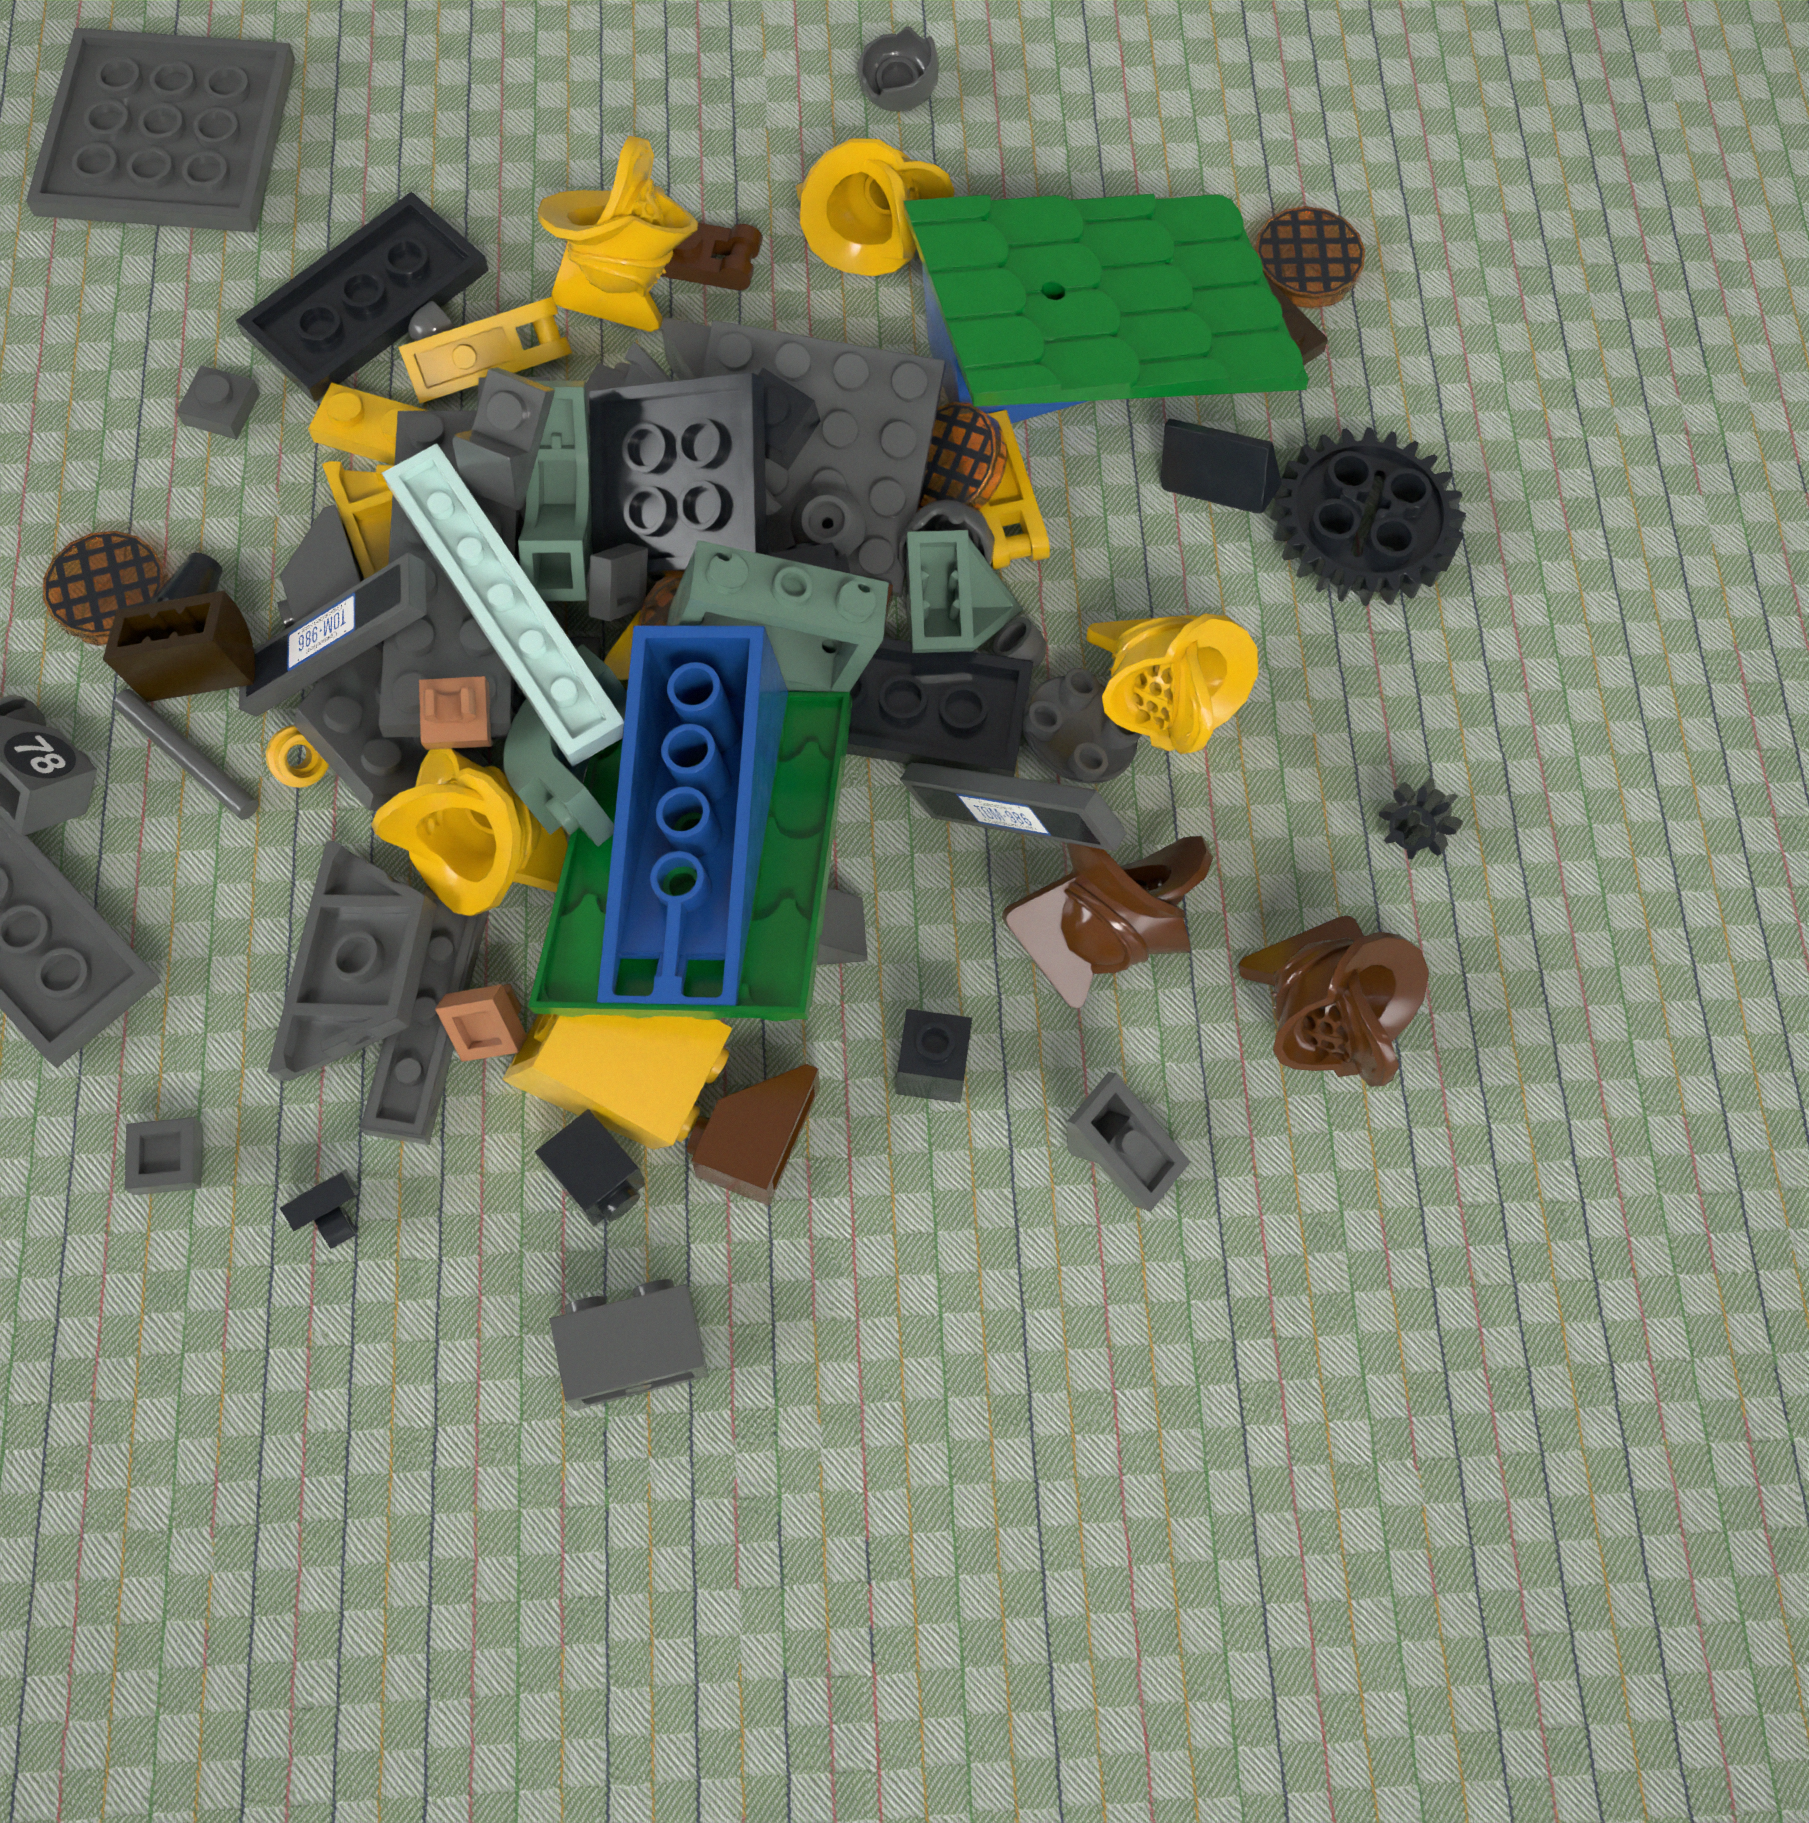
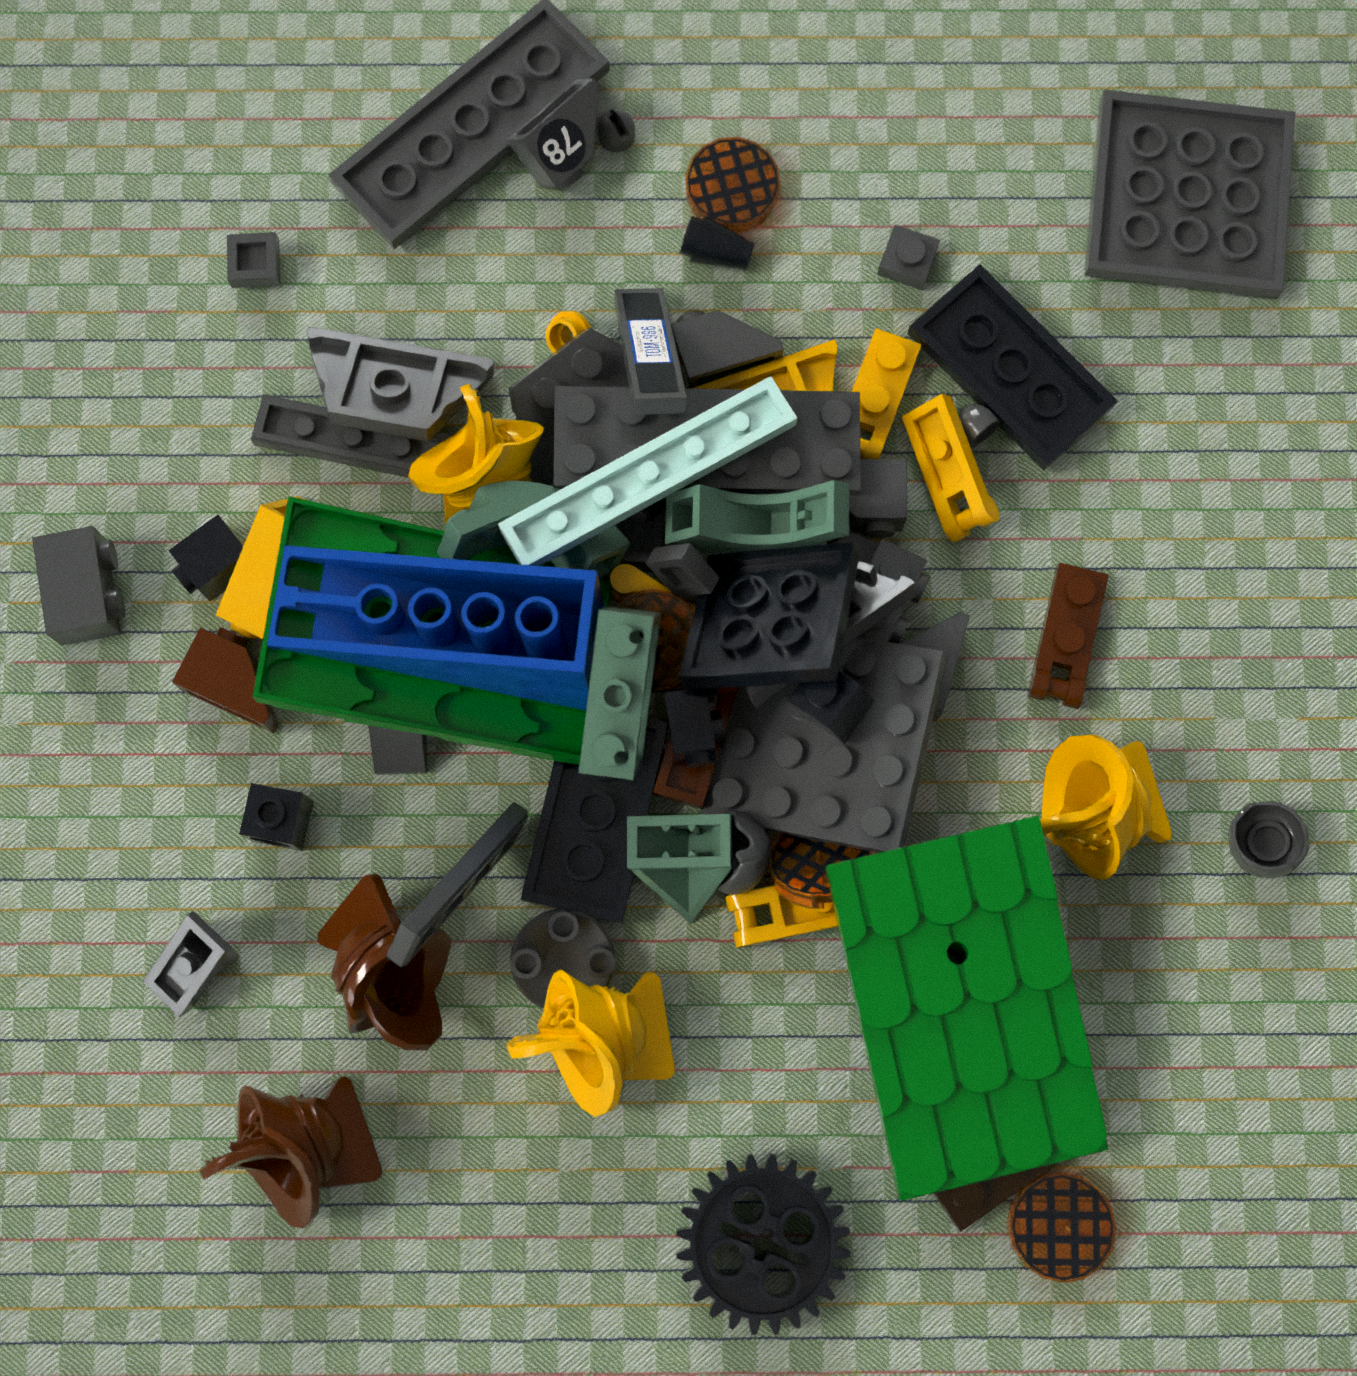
camera: 95 degrees right, 10 degrees up
(182, 647) = (660, 240): dark brown brick -> none
(186, 754) = (582, 253): dark grey bar -> none
(325, 1208) = (202, 370): black tile -> none
(455, 713) = (553, 440): nougat tile -> none
(483, 1021) = (334, 477): nougat tile -> none
(505, 438) = (797, 470): dark grey slope -> none
(616, 241) = (1050, 570): yellow helmet -> none
(832, 504) = (760, 760): dark grey plate -> none
(1021, 641) = (645, 914): dark grey hinge -> none
(1219, 466) = (807, 1105): black slope -> none
(1406, 826) = (455, 1247): black gear -> none

